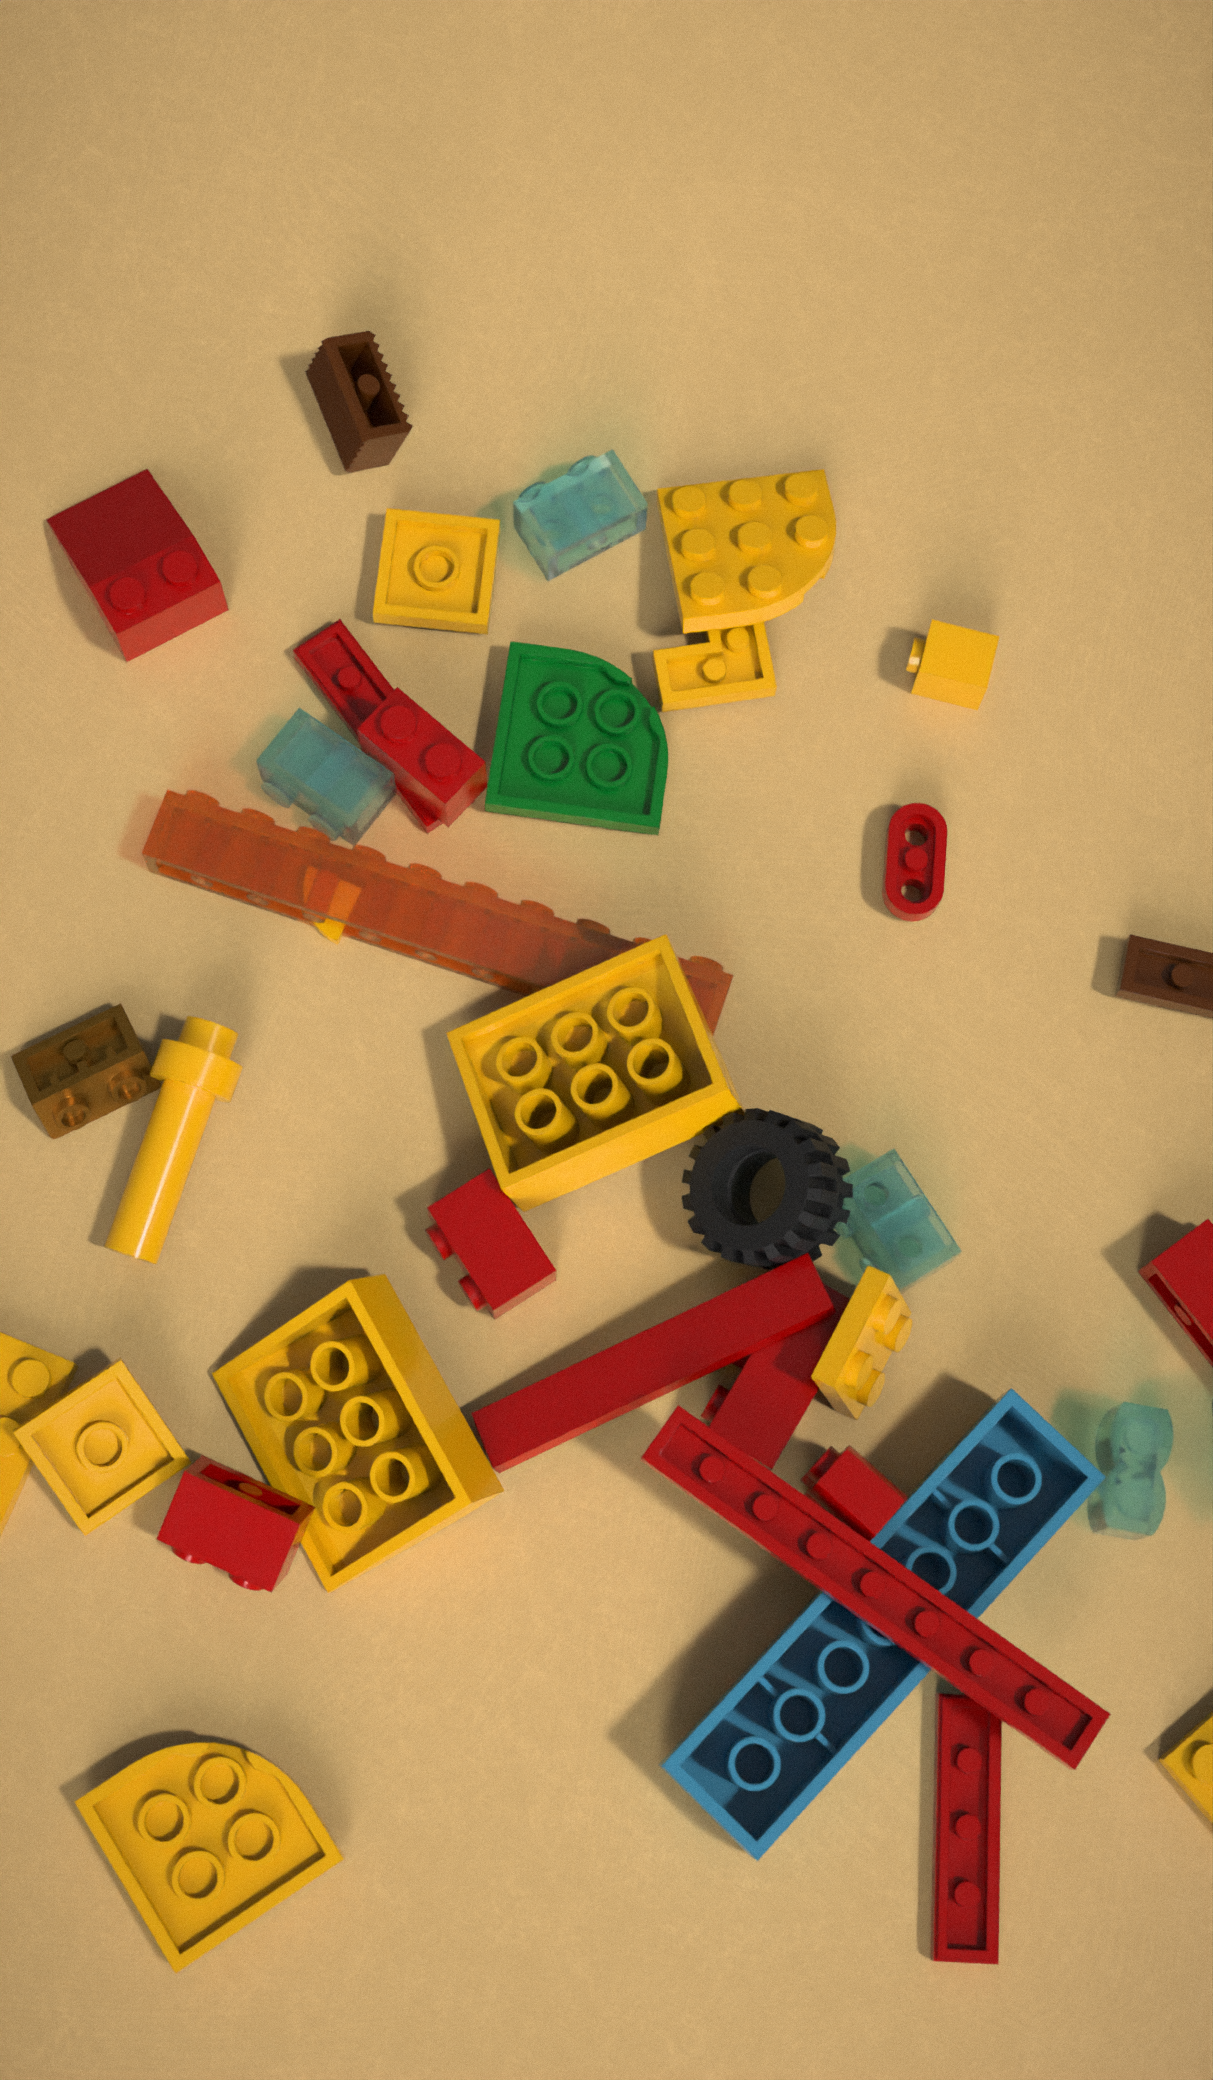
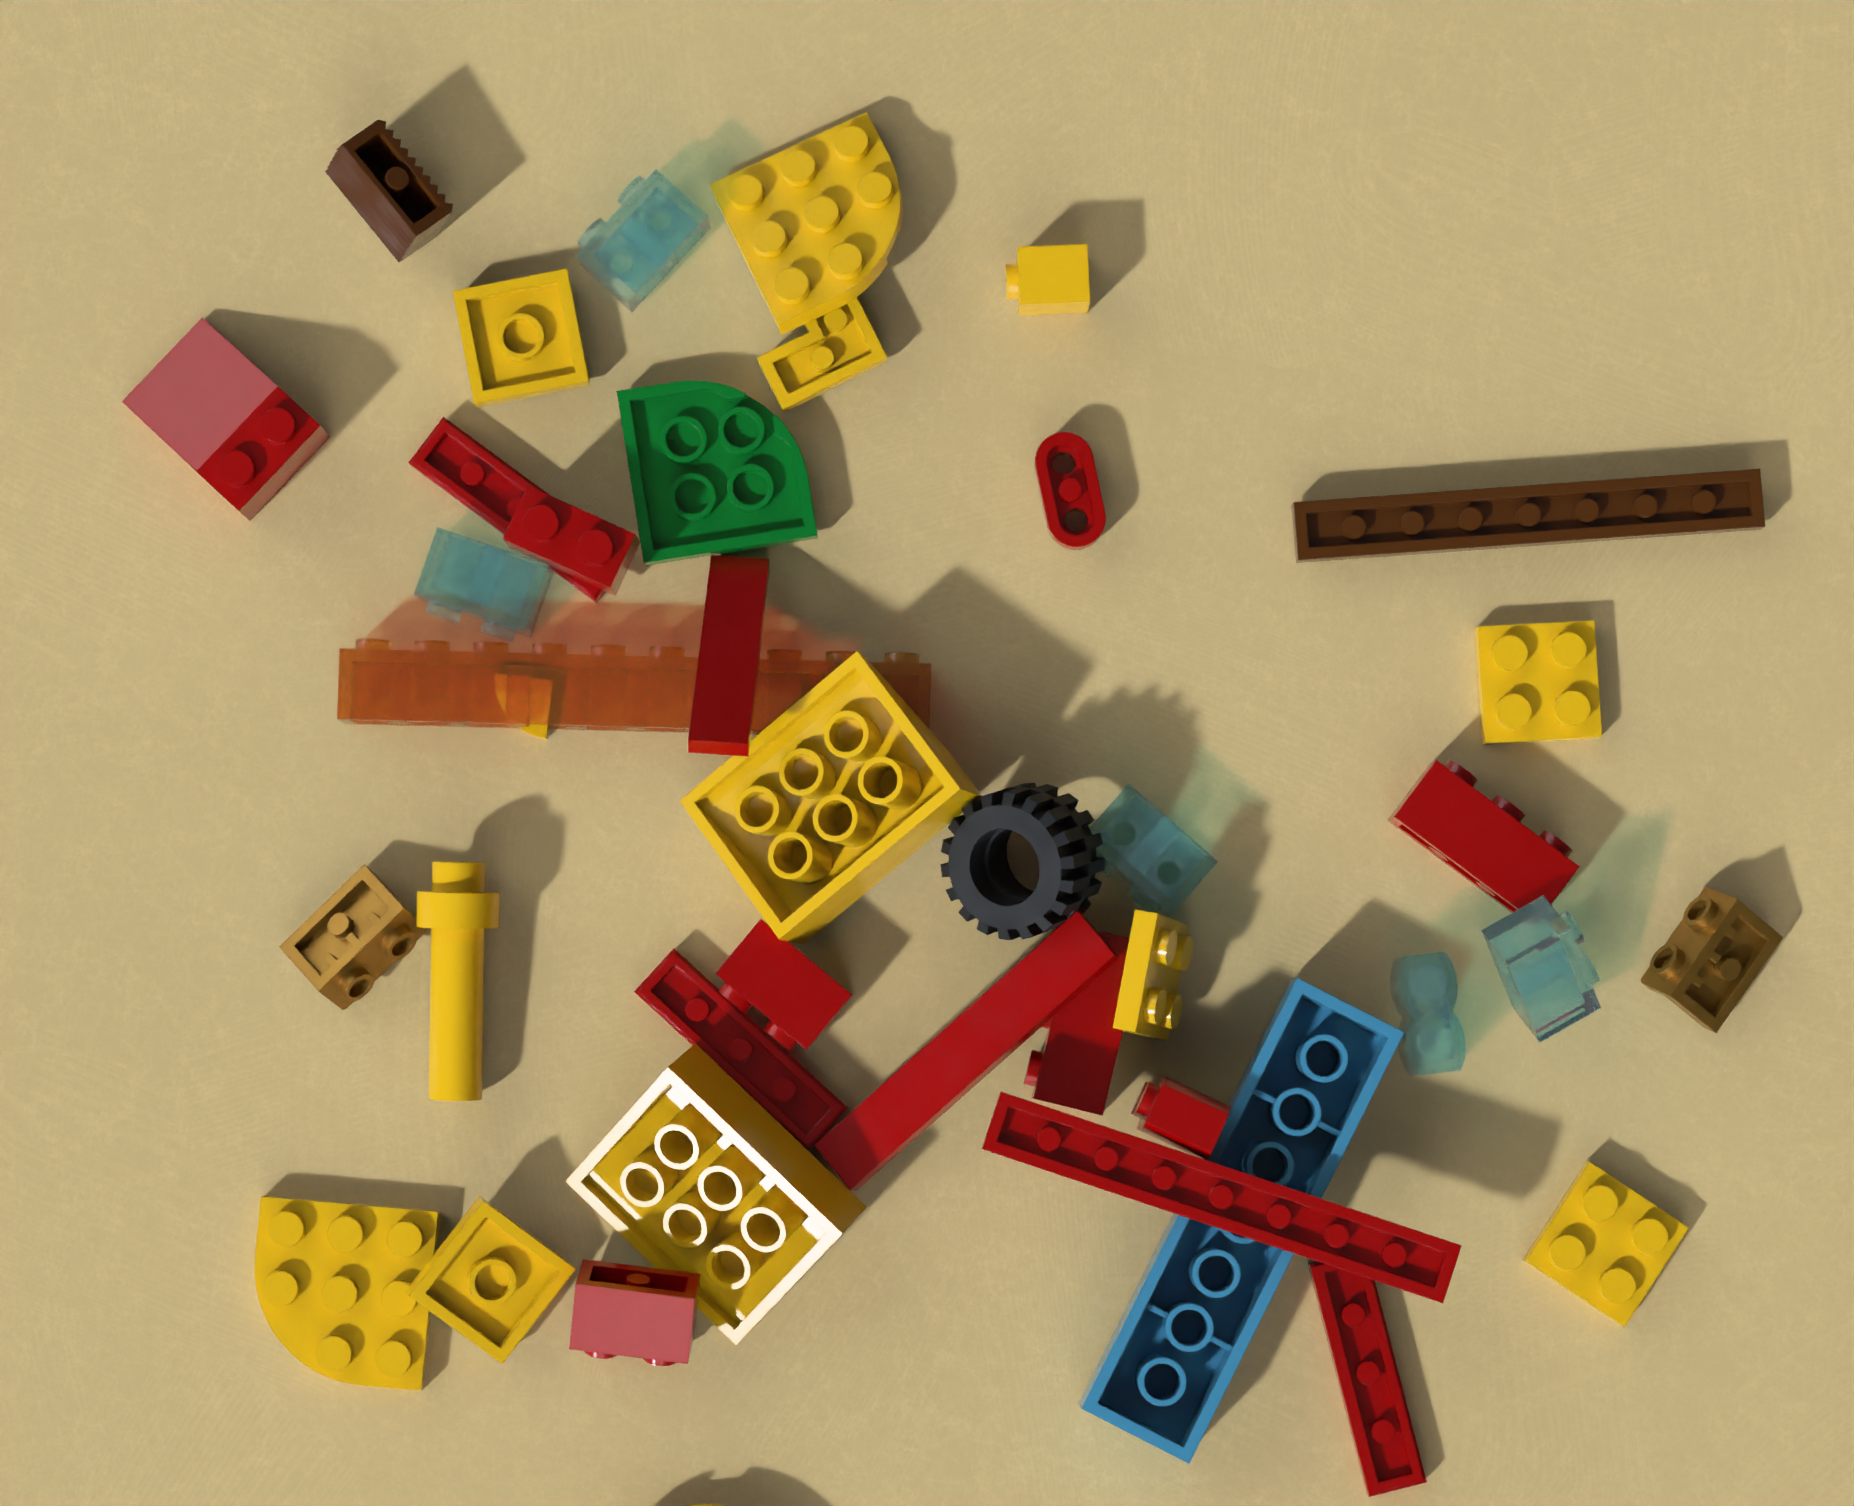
camera: 15 degrees left, 10 degrees up
(430, 1296) = (741, 1048): none -> red tile
(538, 907) = (729, 656): none -> red tile

